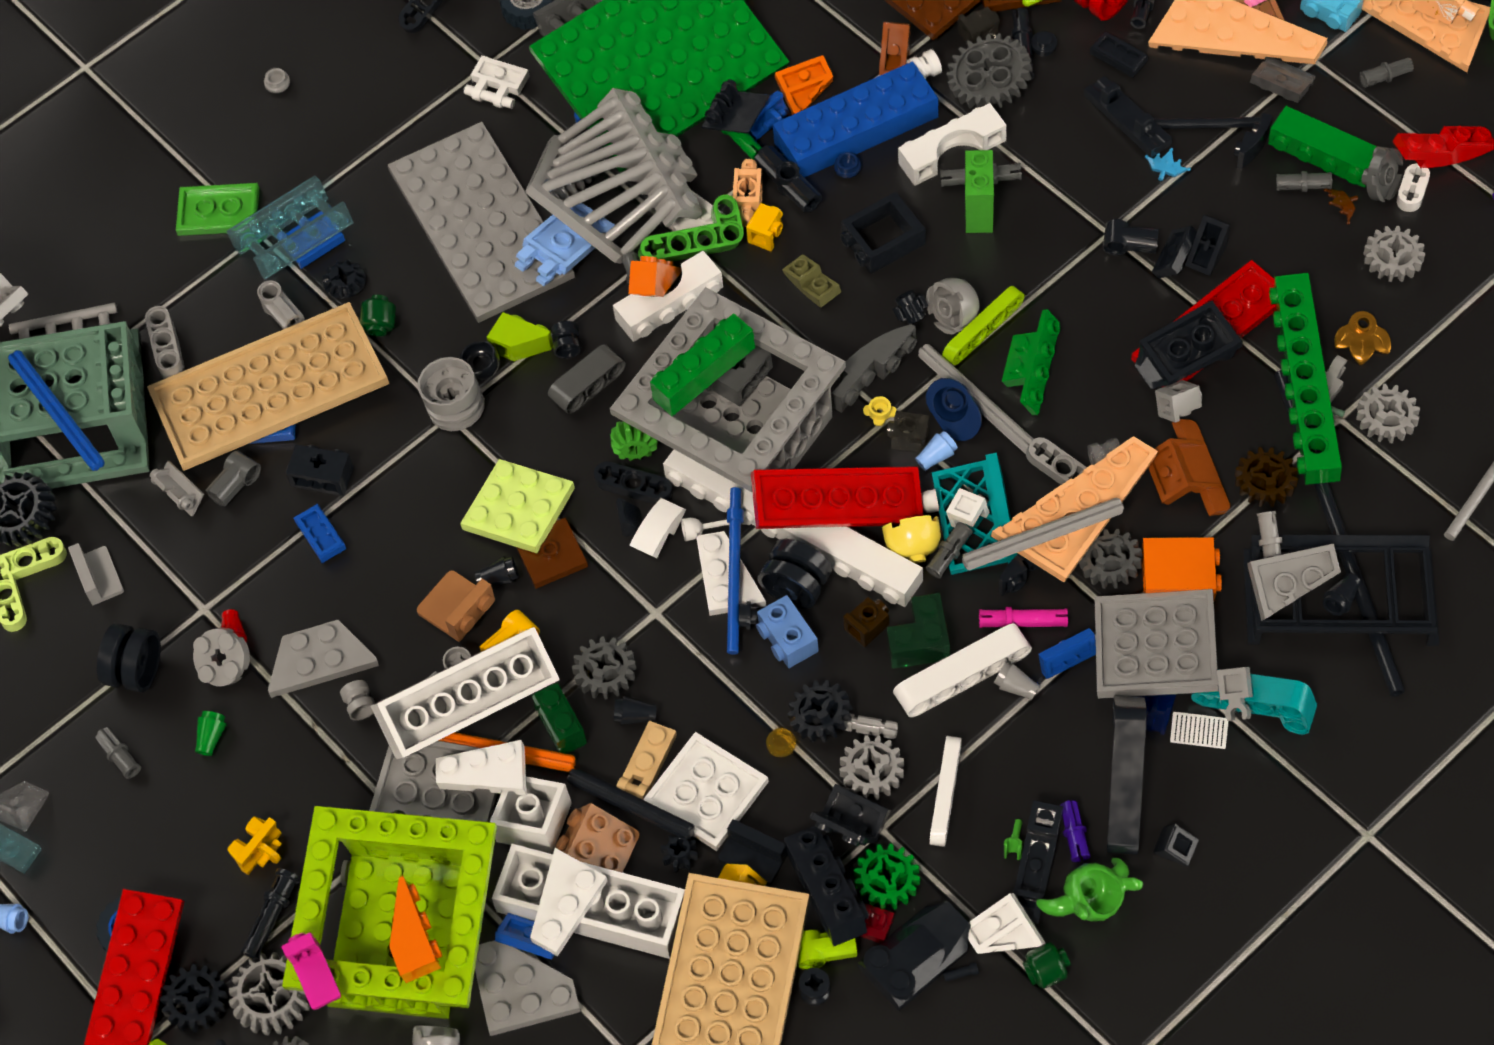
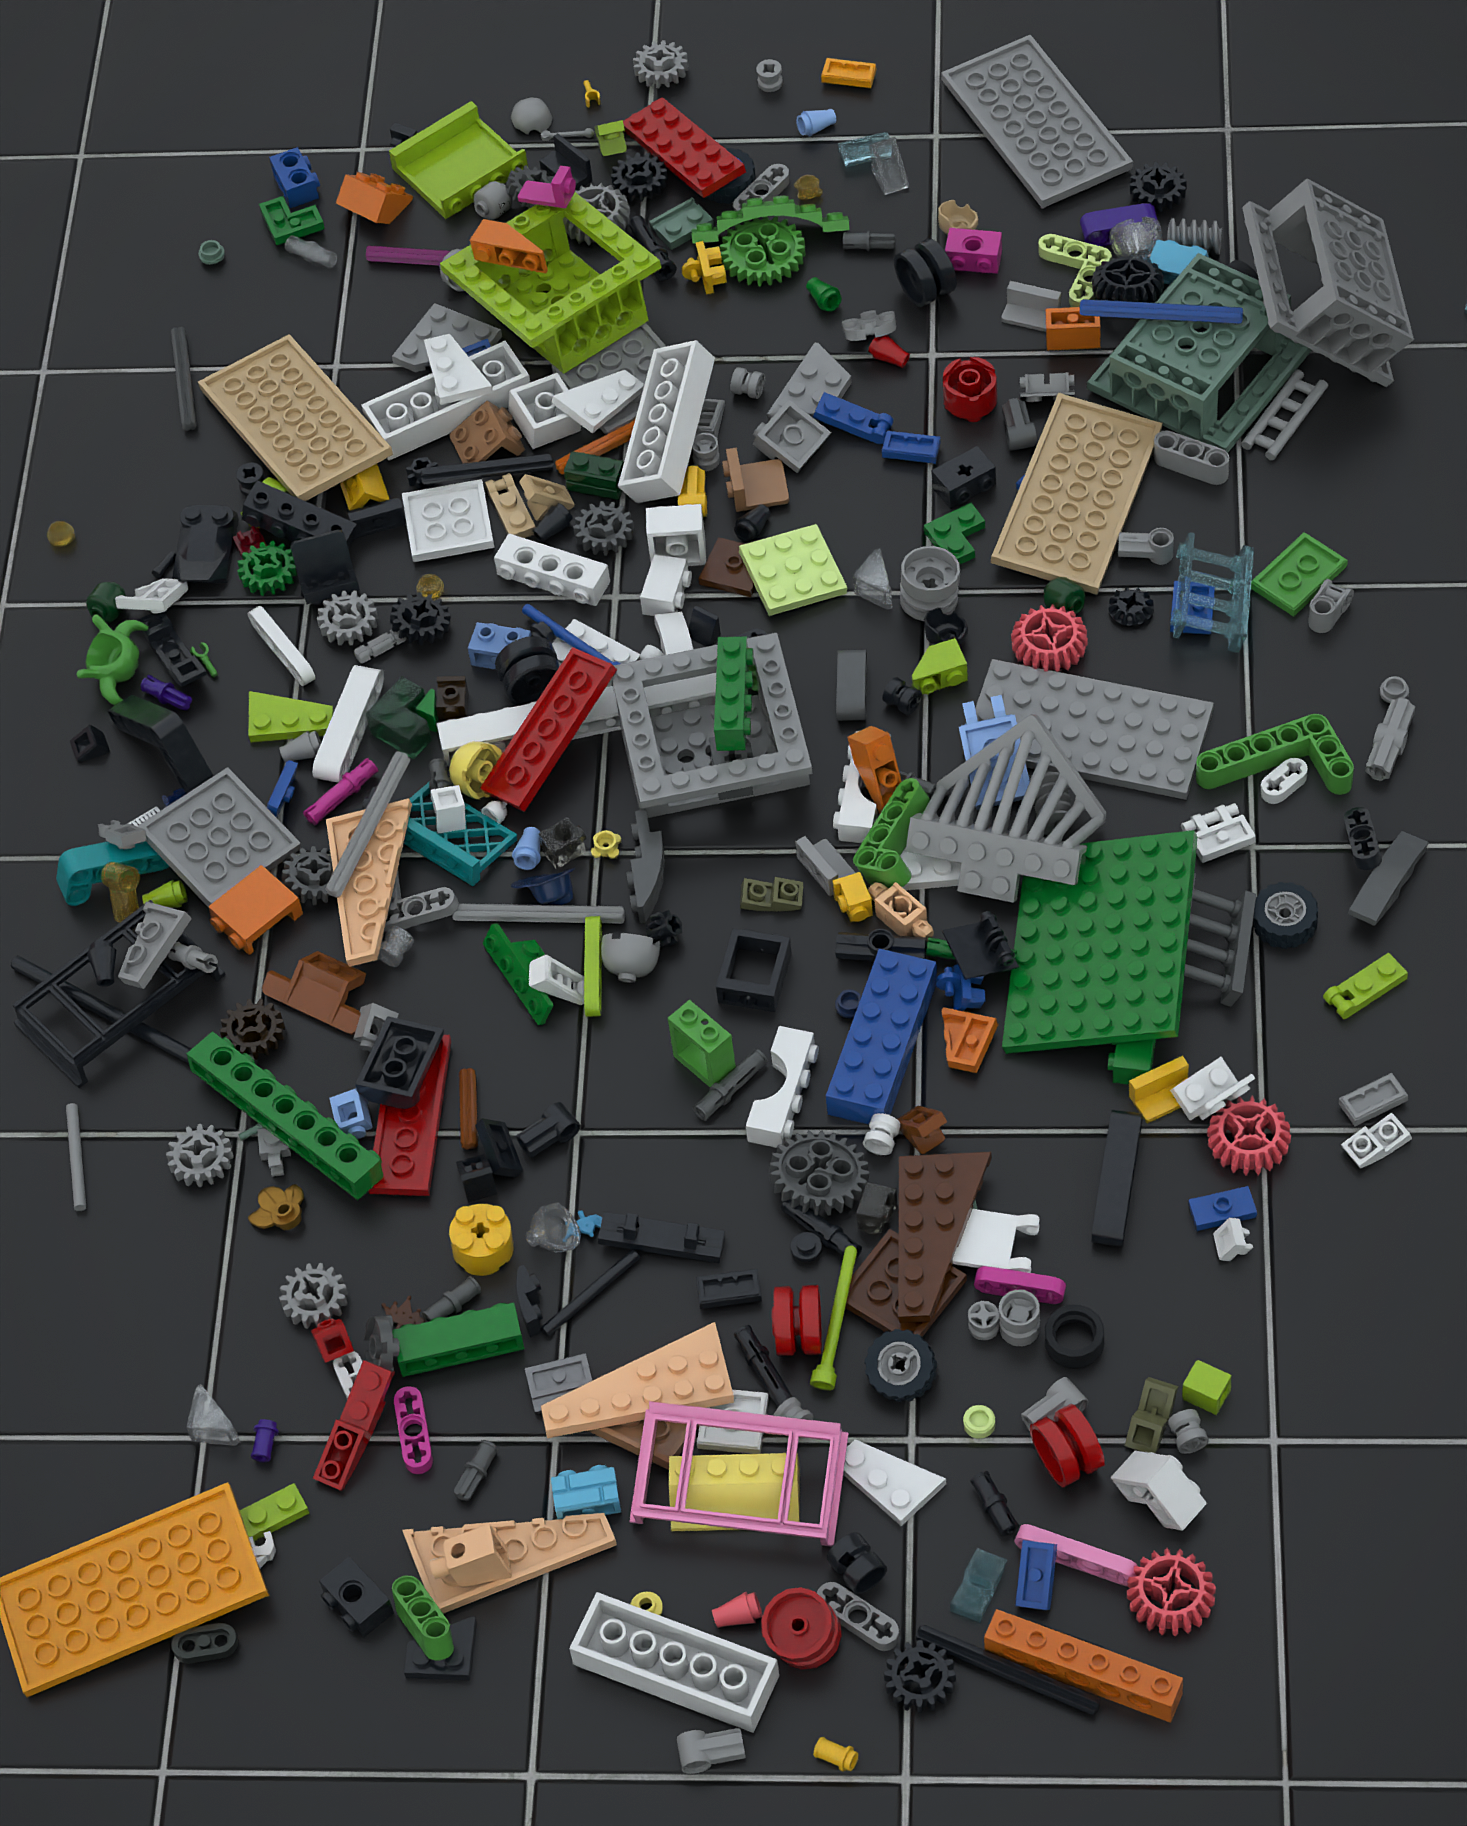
camera: 135 degrees right, 5 degrees down
(40, 699) = (956, 217): none -> tan hair
(71, 674) = (974, 250): none -> dark pink brick
(88, 847) = (808, 187): none -> clear yellow plate
(101, 516) = (1070, 330): none -> orange brick
(117, 880) = (765, 182): none -> light grey beam
(162, 844) = (778, 207): none -> bright green piece
(198, 819) = (748, 259): none -> bright green gear
(218, 921) = (676, 224): none -> sand green plate
(226, 532) = (970, 388): none -> red brick
(235, 163) = (1328, 606): none -> light grey piece
(323, 50) = (1390, 739): none -> light grey piece
(328, 594) = (853, 418): none -> blue plate
(371, 93) = (1270, 748): none -> bright green beam
(378, 445) = (951, 529): none -> green plate
(388, 619) = (790, 436): none -> light grey plate
(415, 83) = (1281, 778): none -> white beam
(425, 305) = (1049, 638): none -> coral gear
(474, 445) = (872, 581): none -> clear slope
(568, 595) = (677, 533): none -> white brick
(614, 737) = (543, 494): none -> tan slope
(618, 574) = (665, 585): none -> white brick
(690, 706) = (552, 569): none -> white brick
(753, 270) = (822, 862): none -> light grey panel
(894, 618) = (428, 710): none -> green slope
(1005, 728) = (284, 717): none -> lime wing
(1024, 323) = (555, 979): none -> white slope
(1166, 301) = (468, 1108): none -> dark orange axle
(1196, 167) = (550, 1233): none -> clear helmet
(1235, 643) = (170, 895): none -> lime cone
(1247, 199) = (481, 1238): none -> yellow brick
(1253, 354) = (351, 1113): none -> light blue brick
(1270, 657) = (122, 886): none -> clear yellow piece
(1404, 116) = (422, 1439): none -> dark pink beam
(1413, 201) = (330, 1335): none -> red brick

